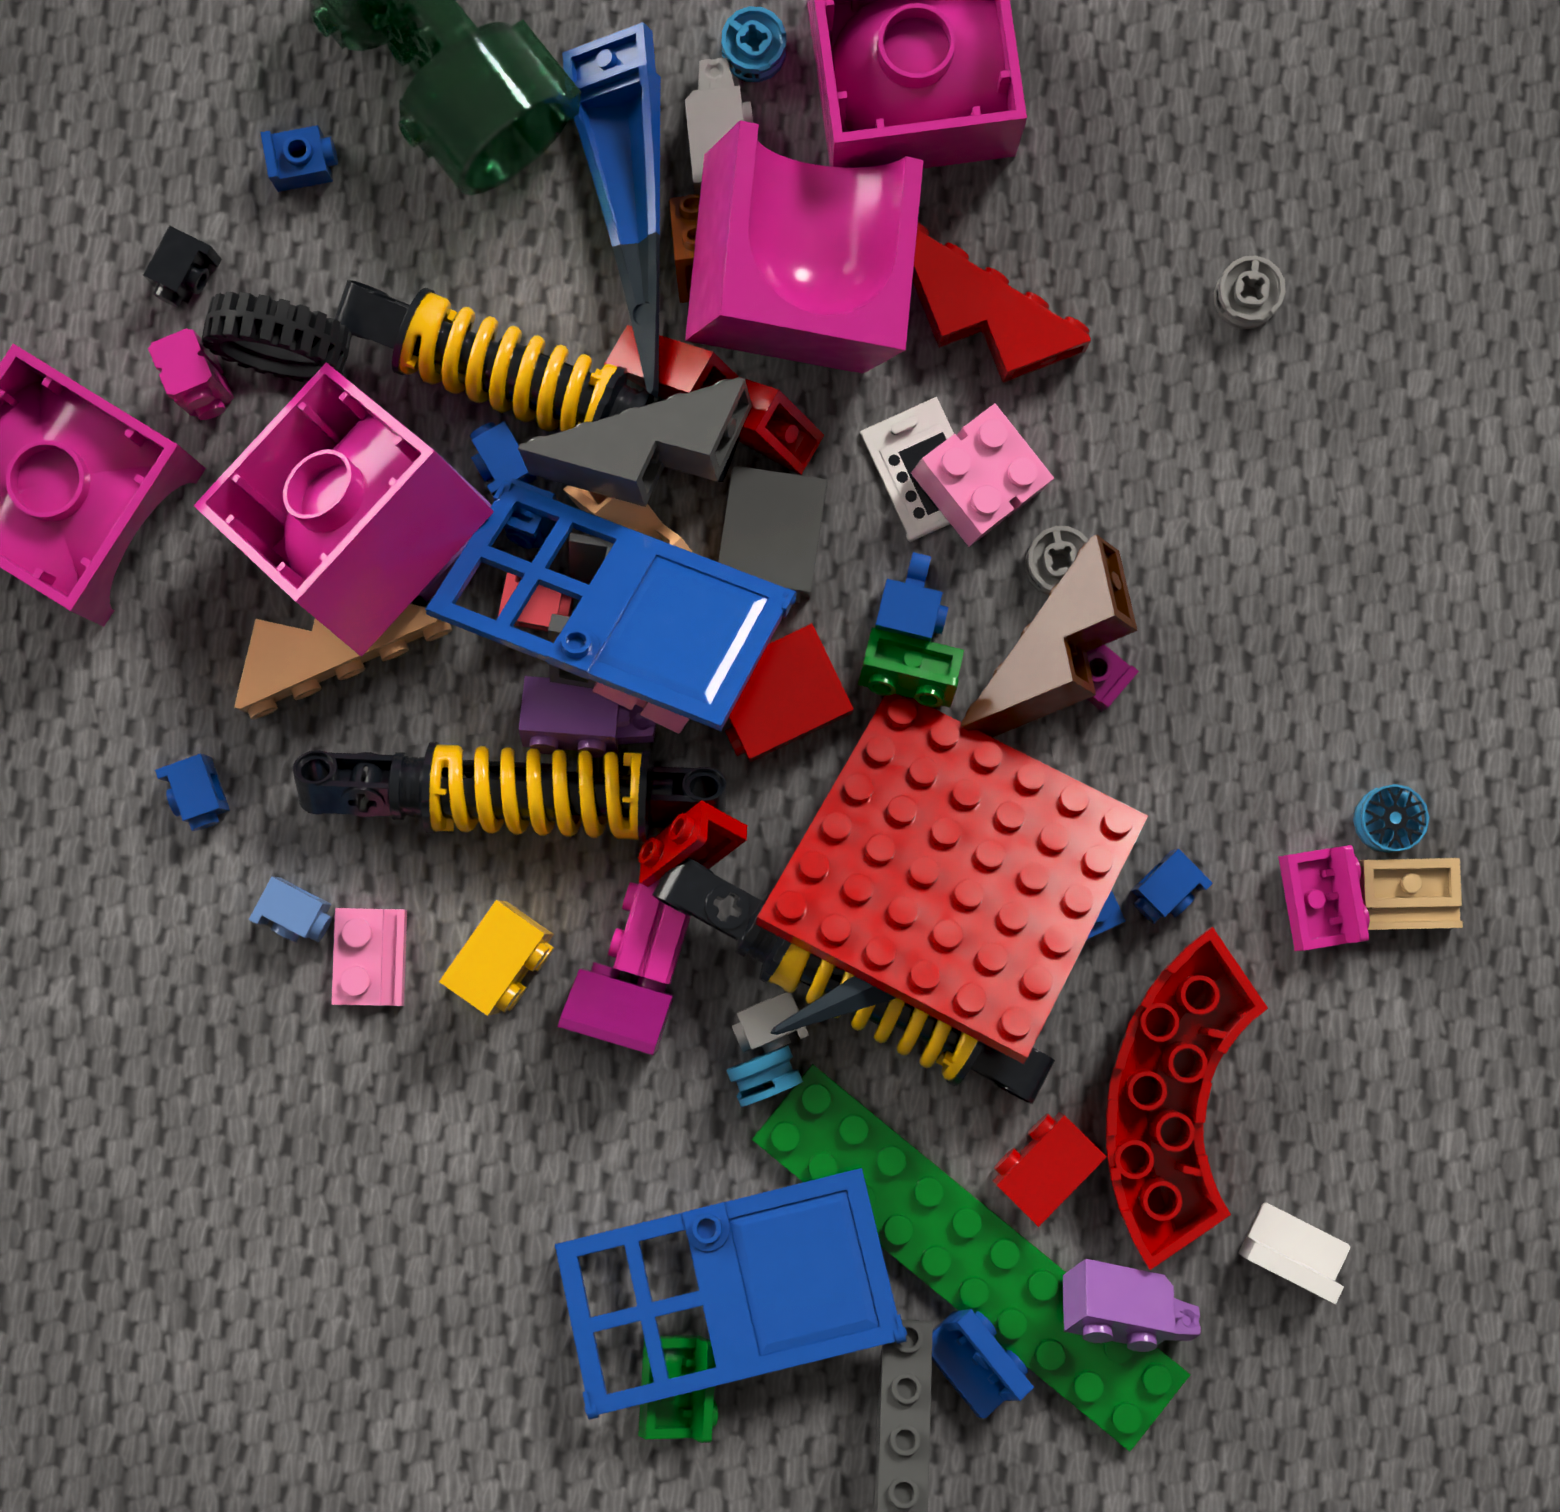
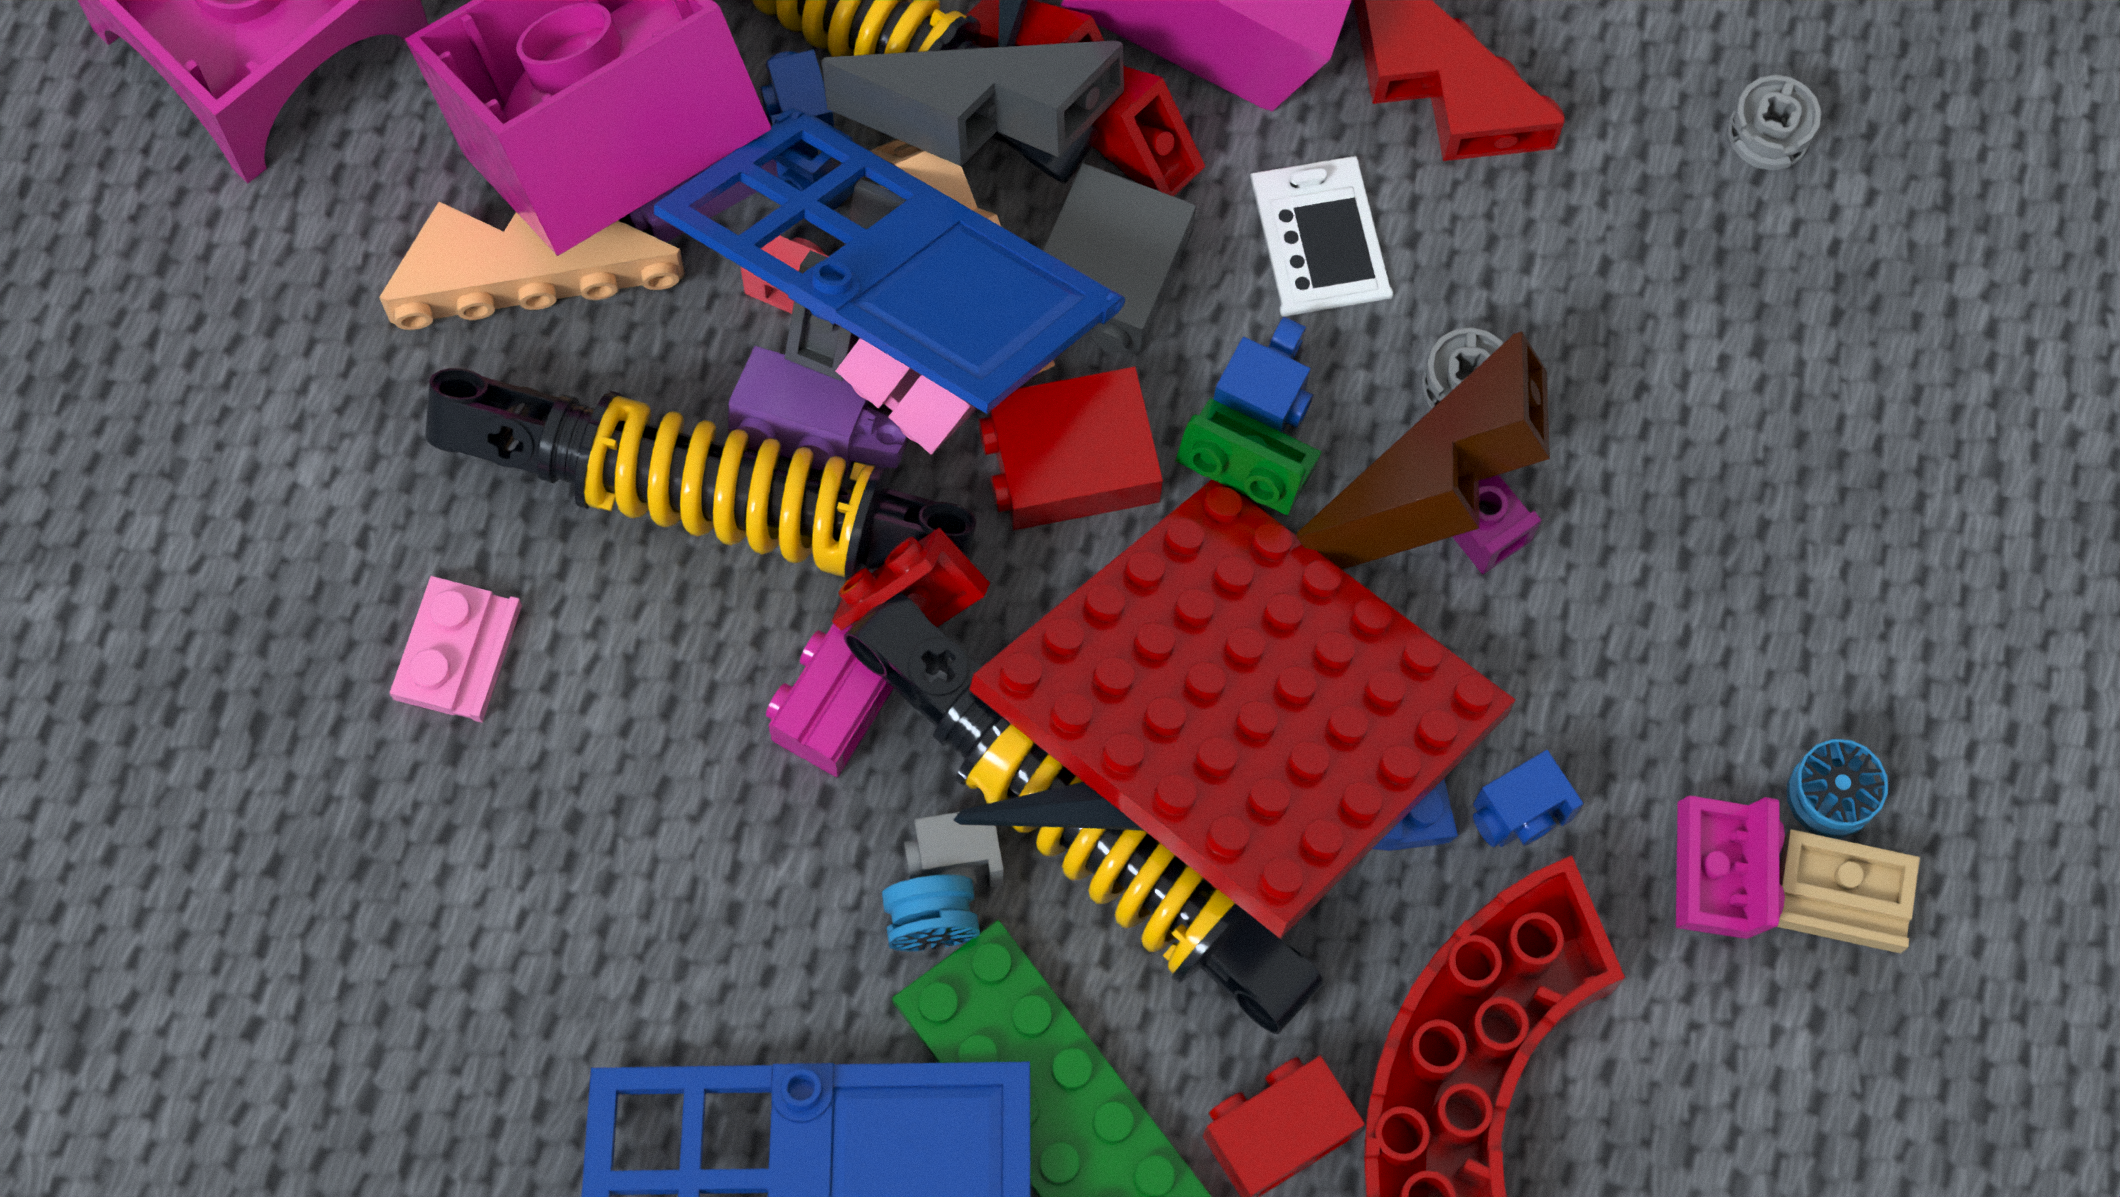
camera: 10 degrees right, 15 degrees down
(194, 791) = (297, 390): blue brick -> none
(292, 911) = (373, 563): medium blue brick -> none
(498, 958) = (623, 674): yellow brick -> none
(617, 1008) = (757, 782): magenta slope -> none
(979, 473) = (1387, 240): bright pink piece -> none

